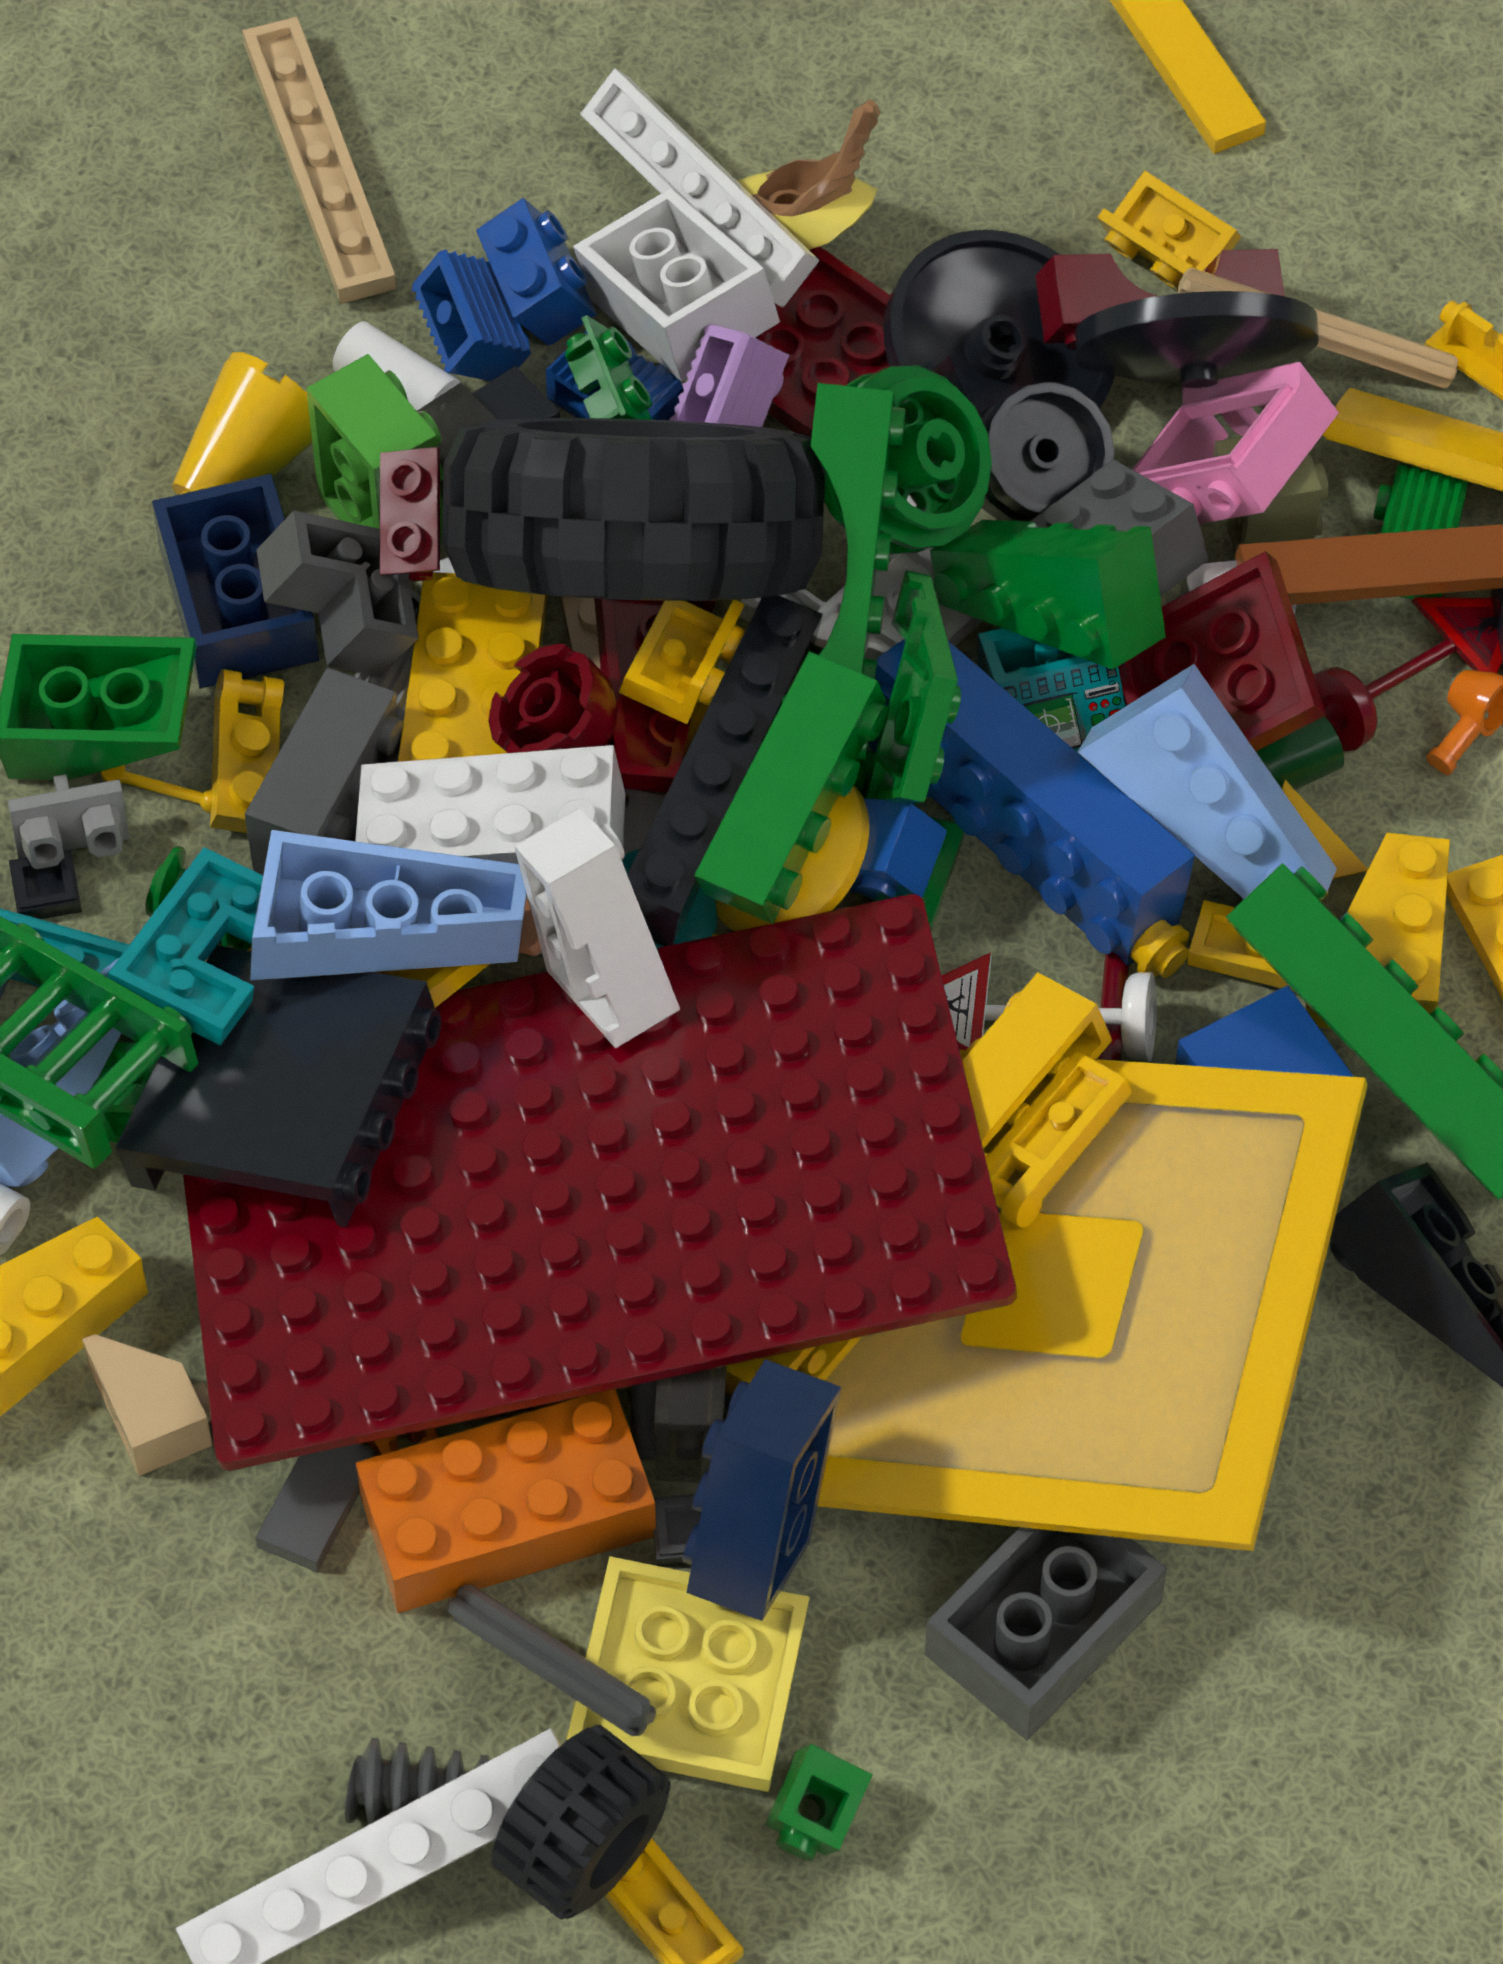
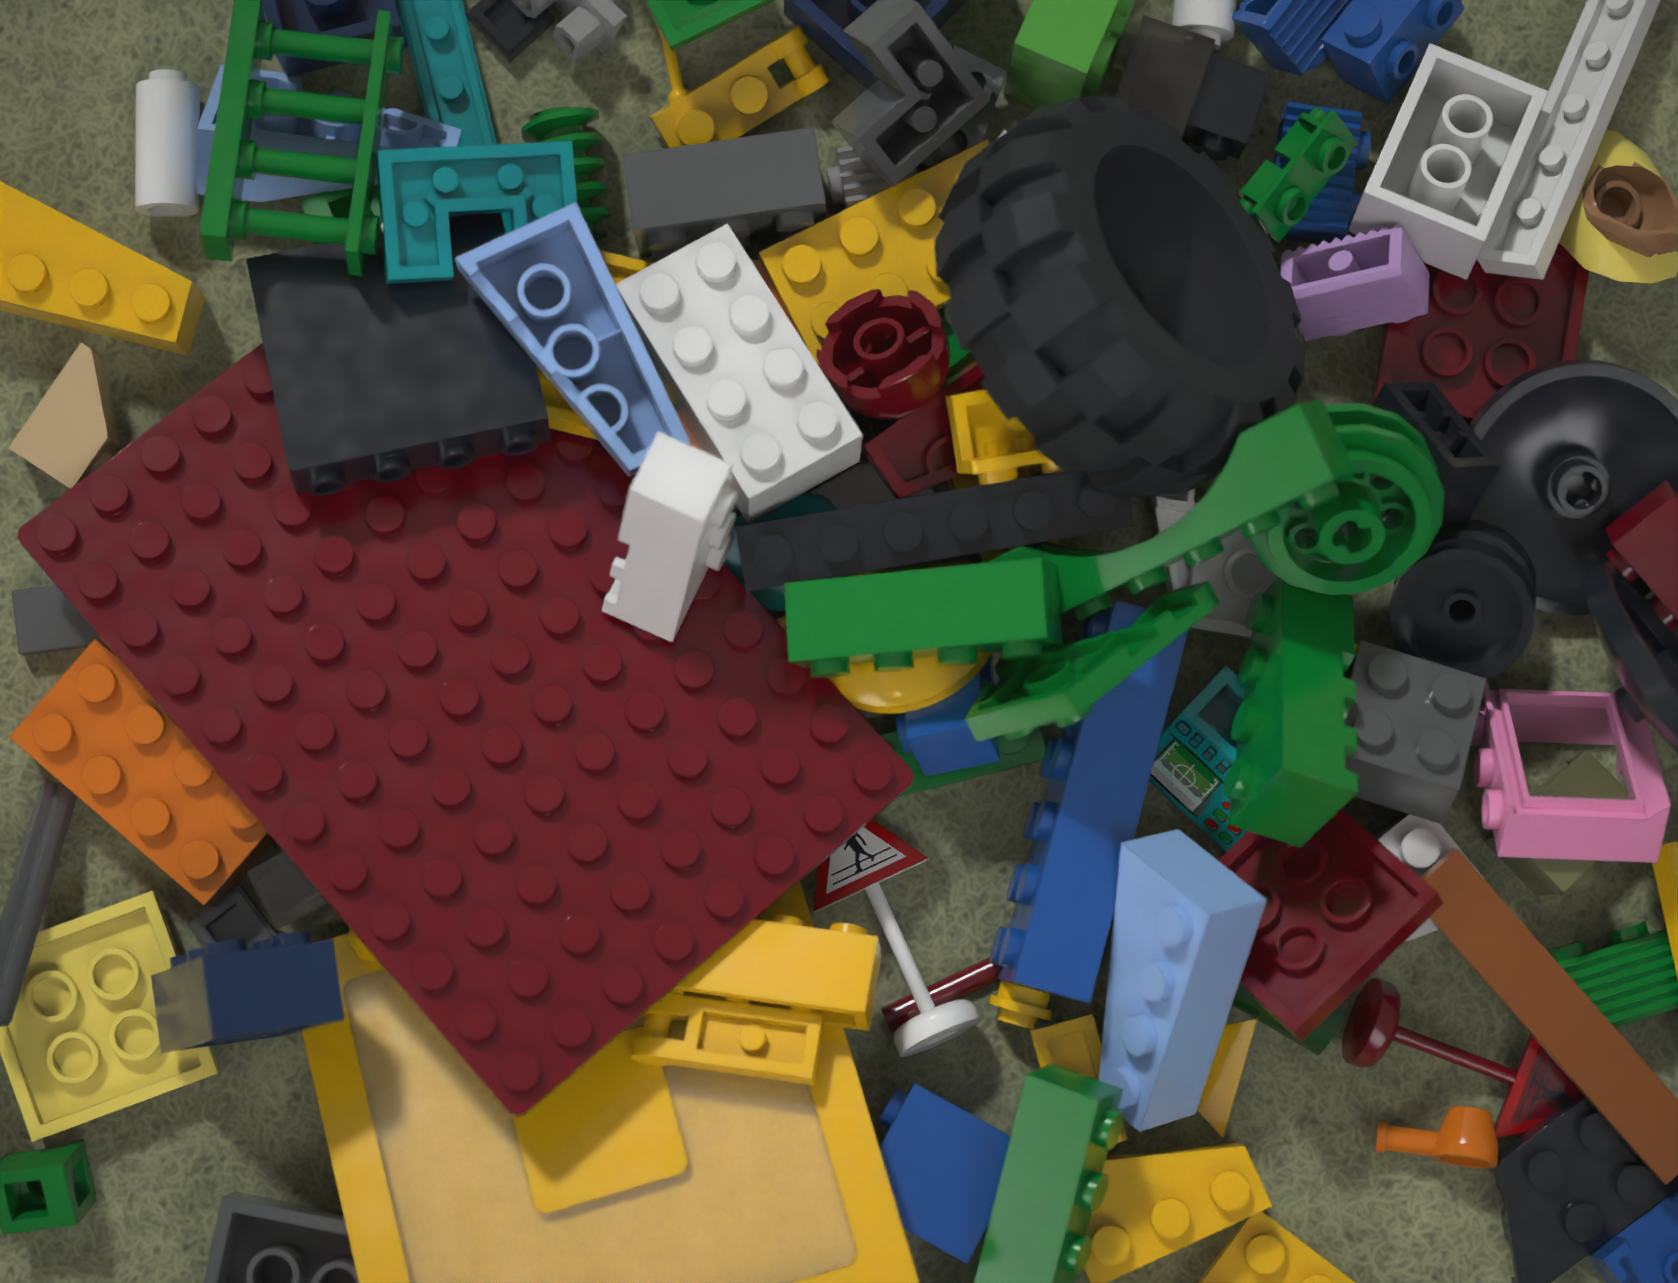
camera: 55 degrees right, 25 degrees up
(410, 513) = (994, 101): hinge -> none

